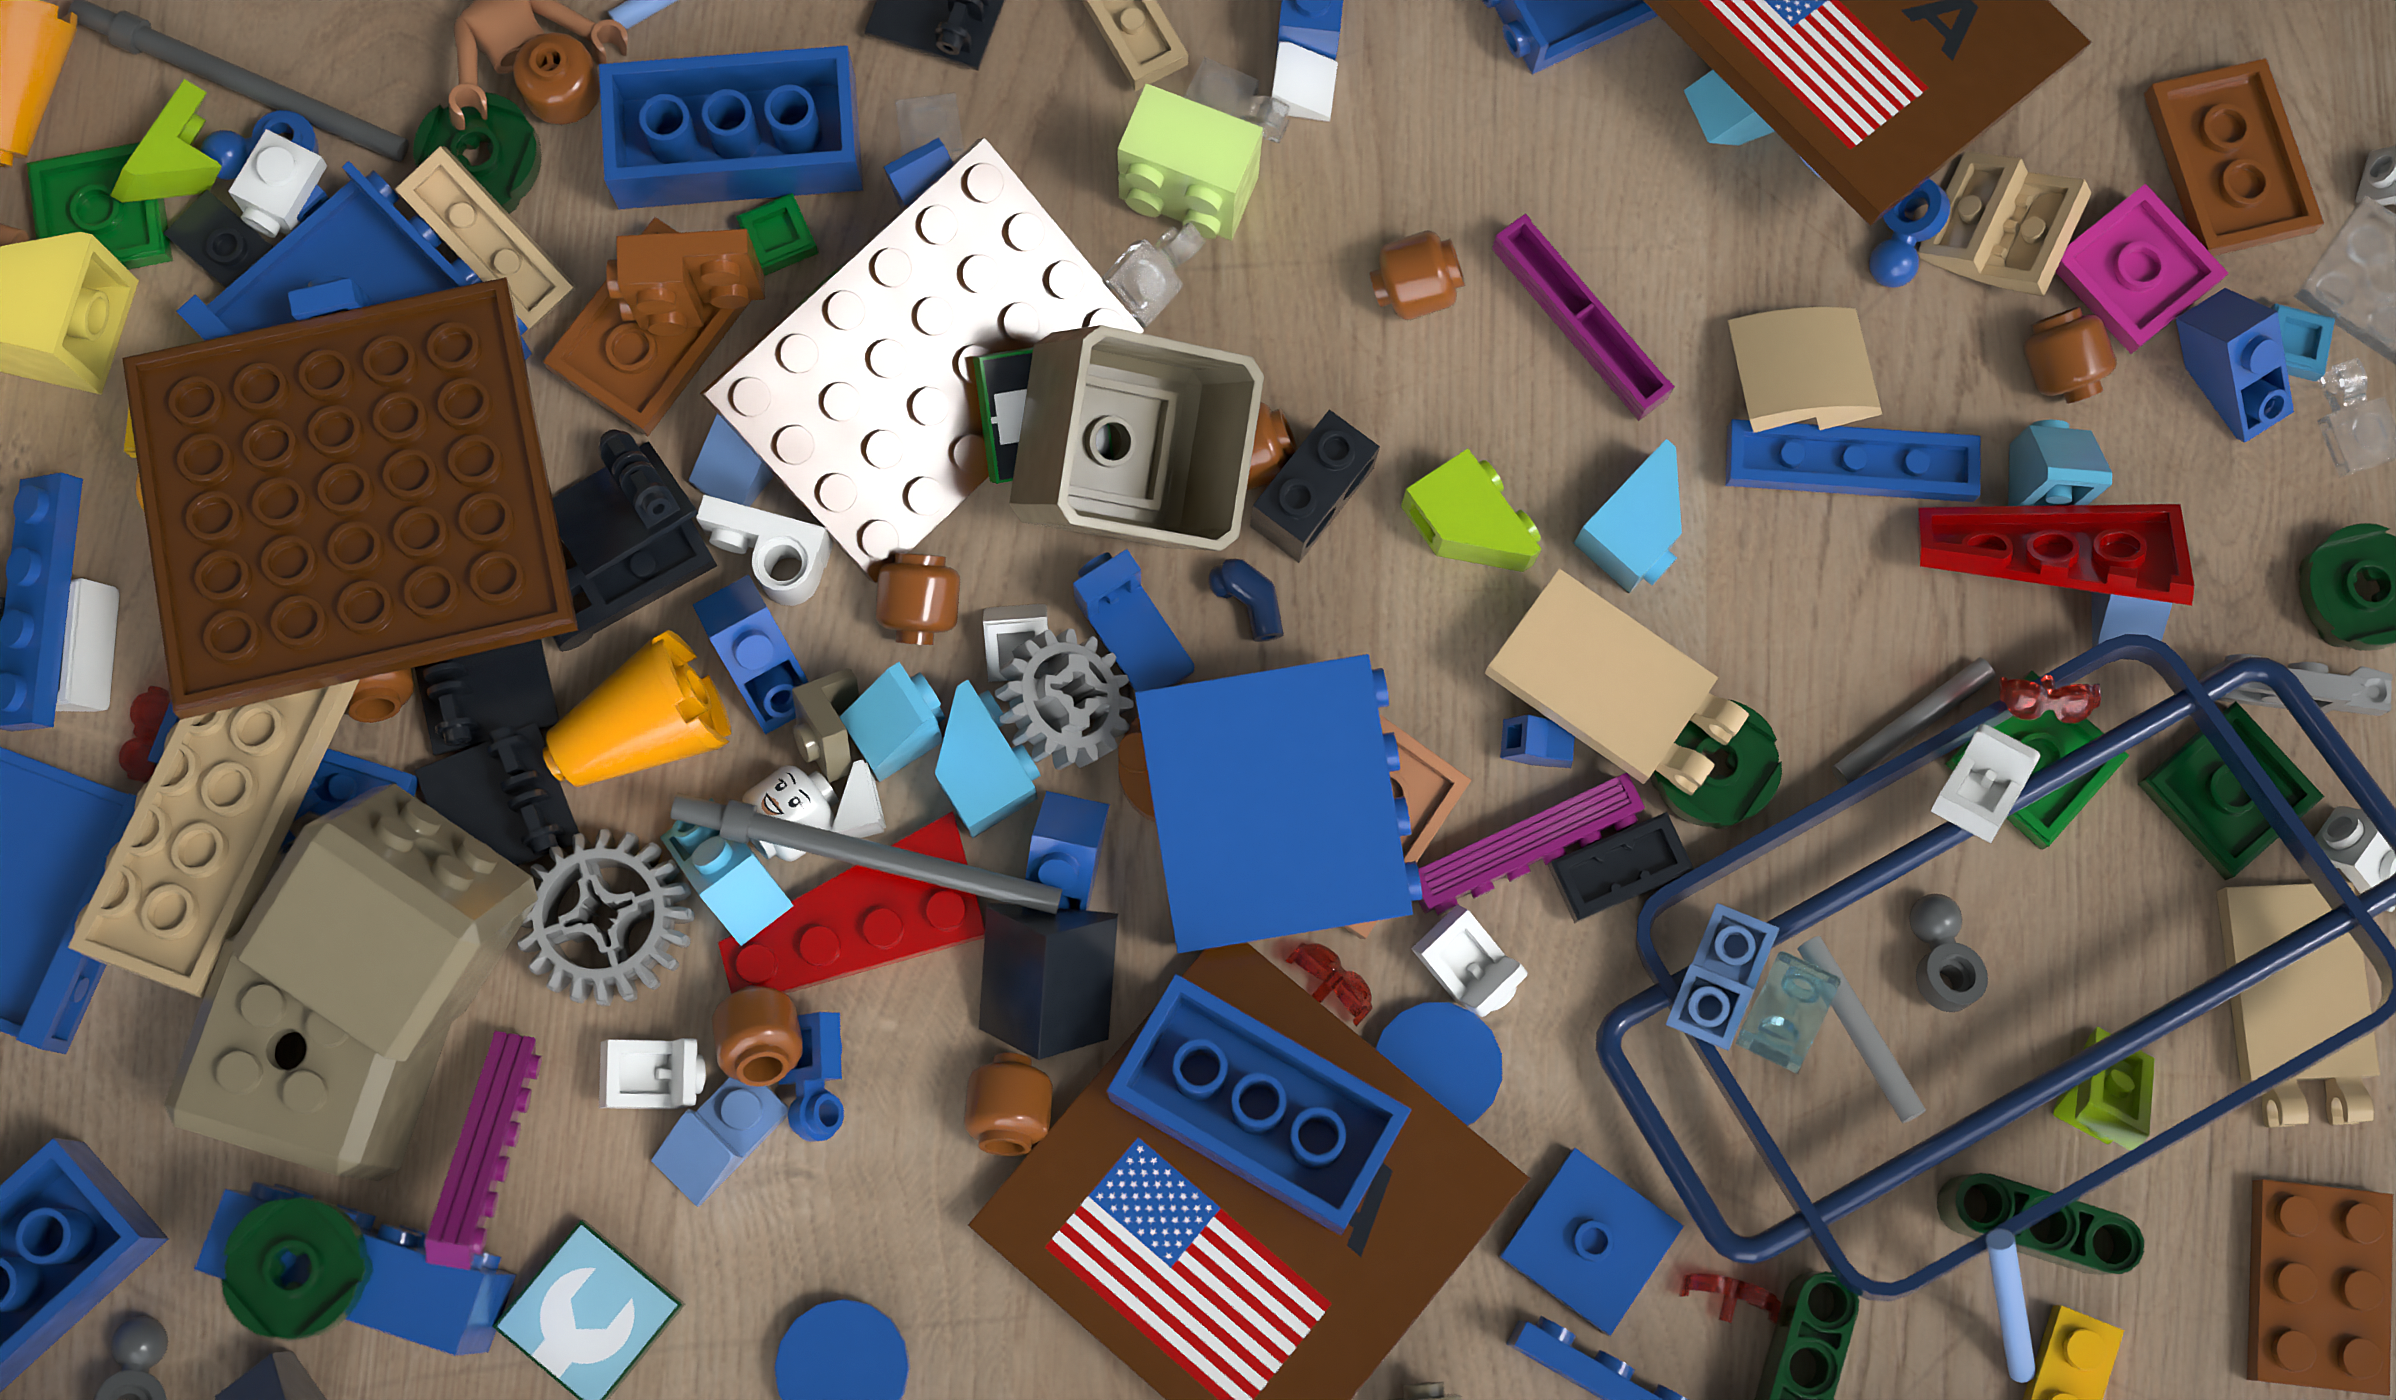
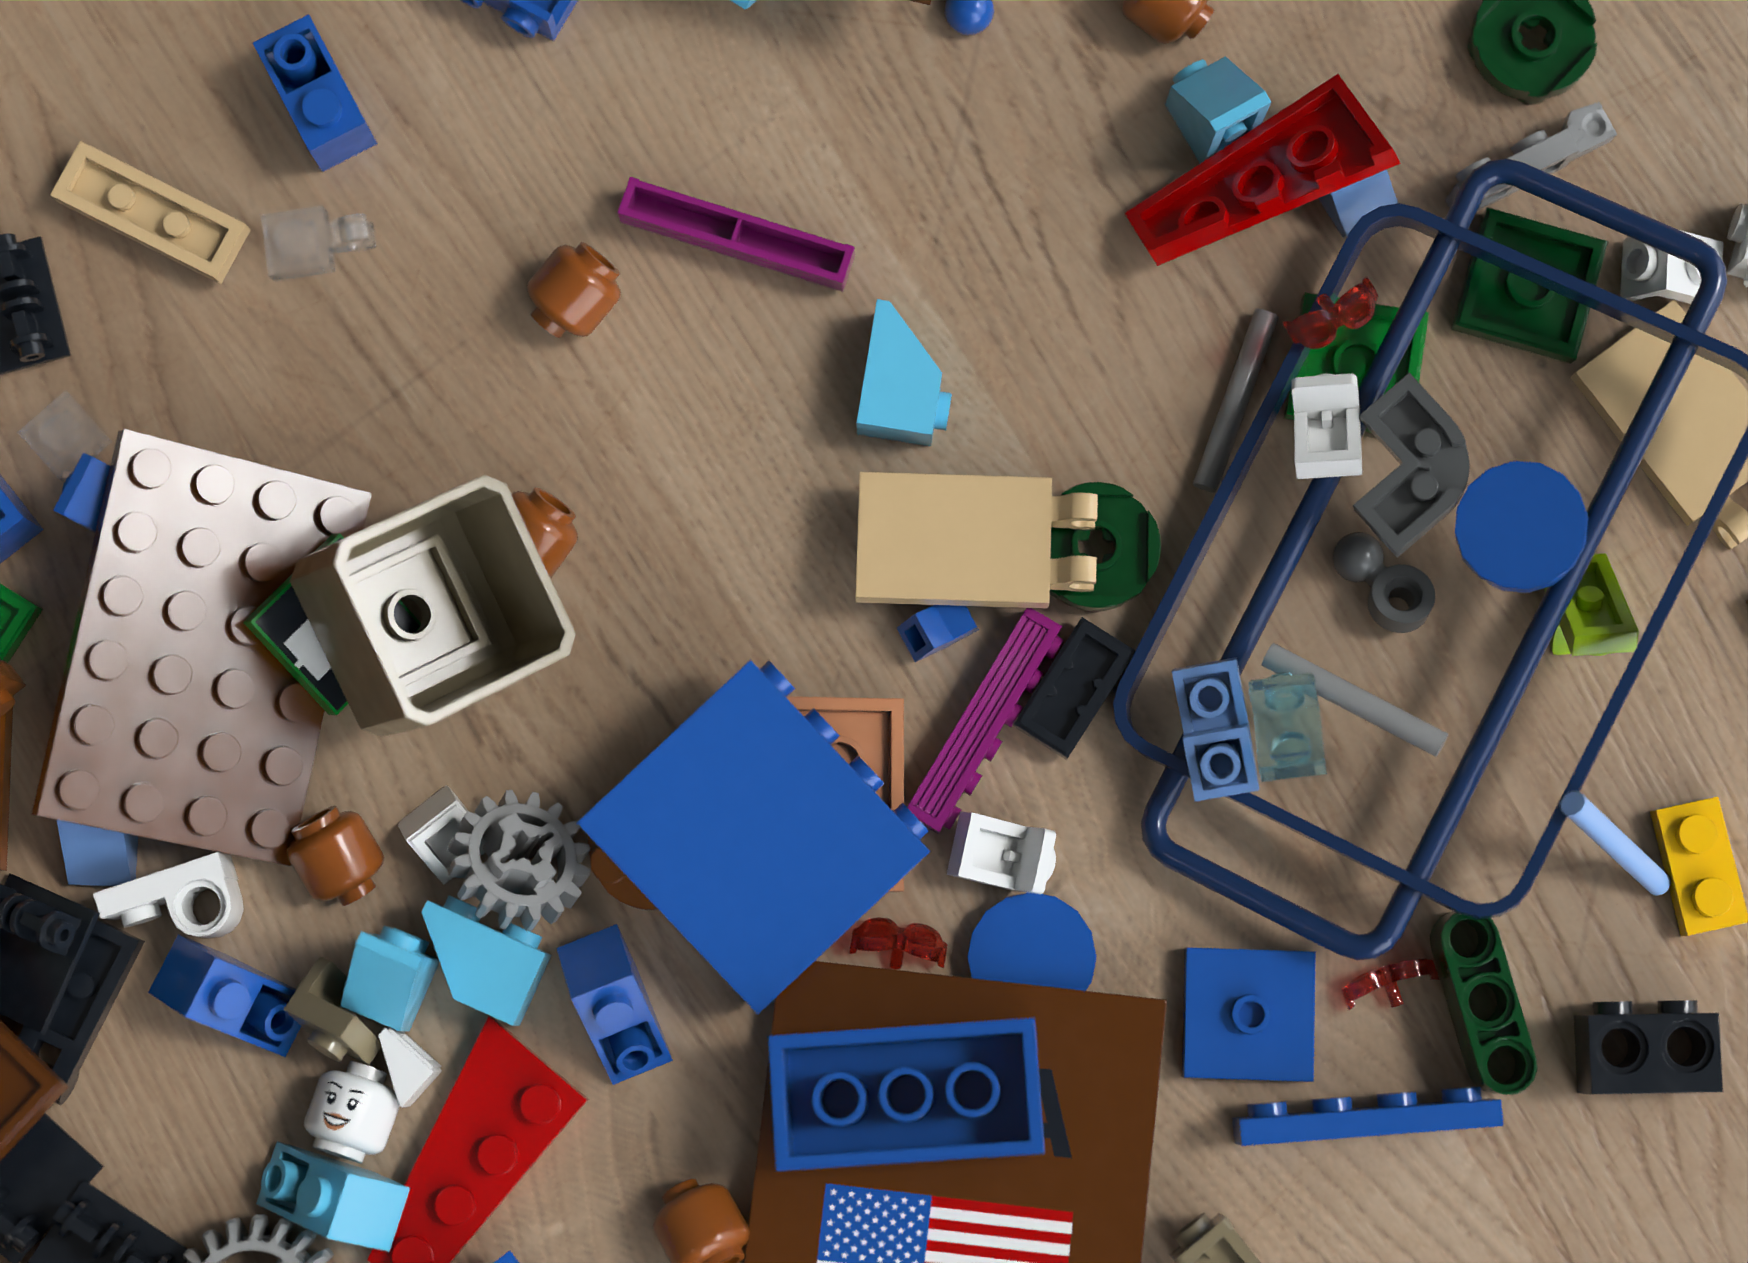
camera: 30 degrees left, 5 degrees up
(639, 717) = (171, 1117): light orange cone -> none
(741, 822) = (320, 1152): dark grey bar -> none
(1047, 978) = (662, 1103): black slope -> none
(1130, 623) = (533, 758): blue bracket -> none
(1145, 275) = (338, 445): clear plate -> none
(1188, 162) = (312, 326): yellowish green piece -> none
(1254, 590) = (615, 656): dark blue arm -> none
(1304, 82) = (362, 180): white slope -> none
(1314, 485) = (607, 534): black brick -> none
(1468, 518) = (754, 475): lime slope -> none
(1804, 367) = (952, 156): tan slope -> none
(1854, 461) = (1044, 209): blue plate -> none
(2055, 874) = (1431, 467): none -> dark grey plate
(2070, 1228) = (1627, 749): dark green beam -> none
(2104, 976) = (1521, 526): none -> blue tile

